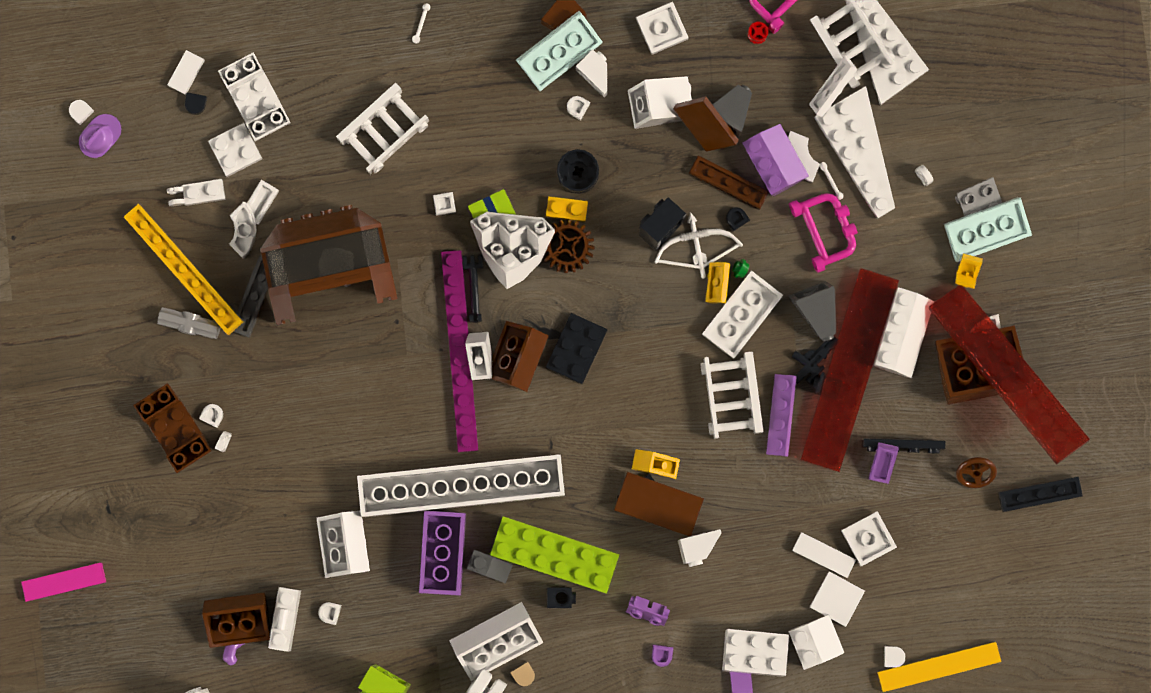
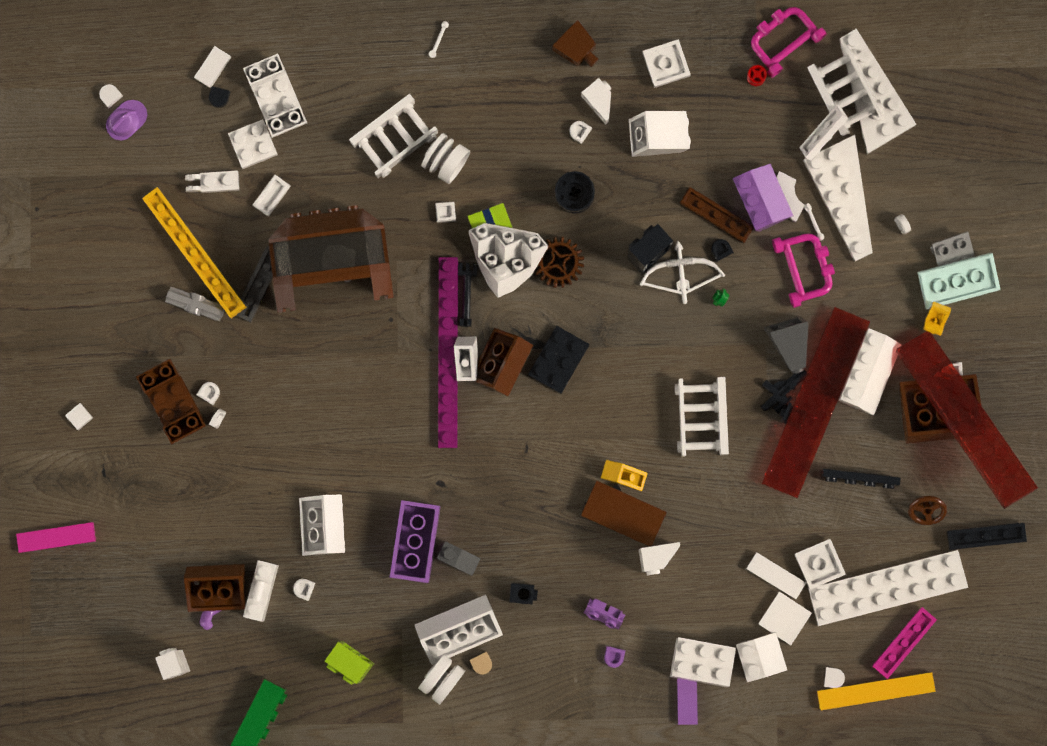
camera: 10 degrees right, 0 degrees up
(76, 452) = (79, 416): none -> white tile
(244, 230) = (255, 220): white tile -> none
(440, 148) = (447, 159): none -> white wheel
(460, 486) = (438, 480): white brick -> none
(554, 554) = (520, 552): lime brick -> none
(559, 51) = (567, 76): light aqua tile -> none
(566, 209) = (561, 227): yellow plate -> none
(706, 124) = (699, 157): reddish brown tile -> none
(717, 282) = (697, 309): yellow plate -> none
(734, 108) = (721, 150): dark grey slope -> none
(742, 314) = (718, 341): white plate -> none
(781, 415) = (747, 439): medium lavender plate -> none
(883, 463) = (840, 493): medium lavender tile -> none
(942, 557) = (888, 588): none -> white plate
(964, 613) = (904, 642): none -> dark pink plate

